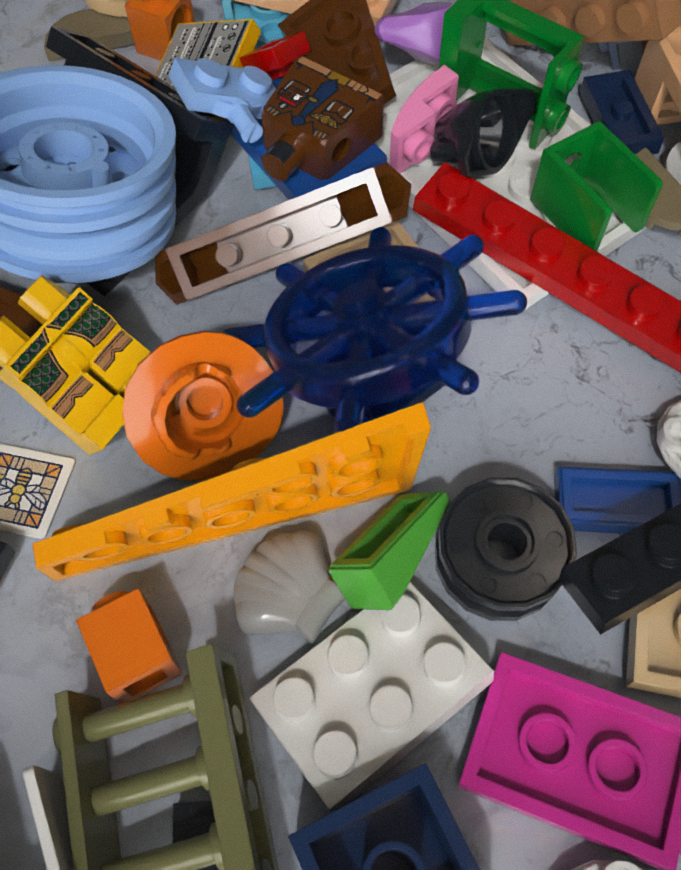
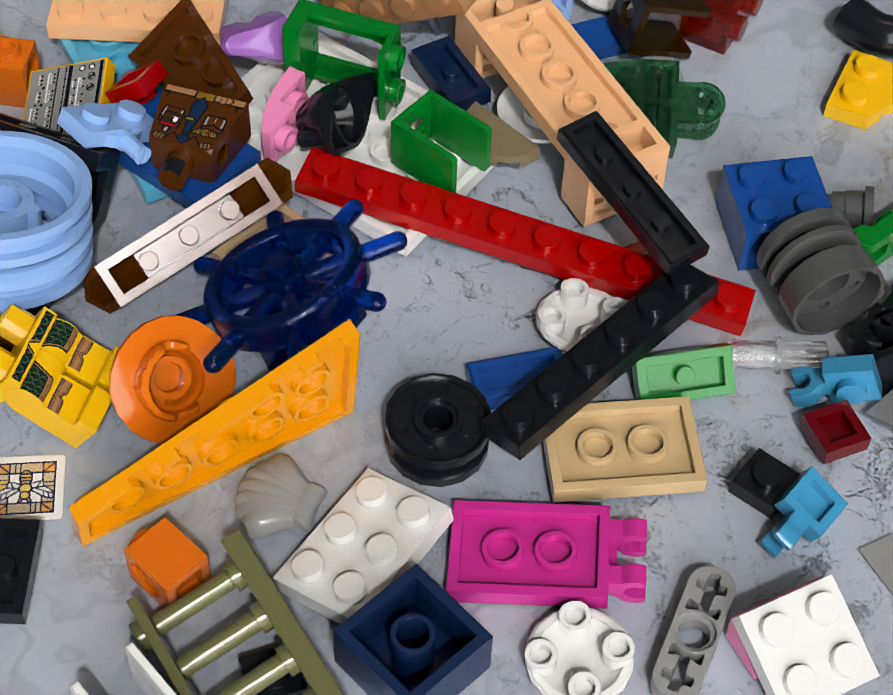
camera: 20 degrees left, 10 degrees down
(386, 555) = (350, 451): bright green slope -> none

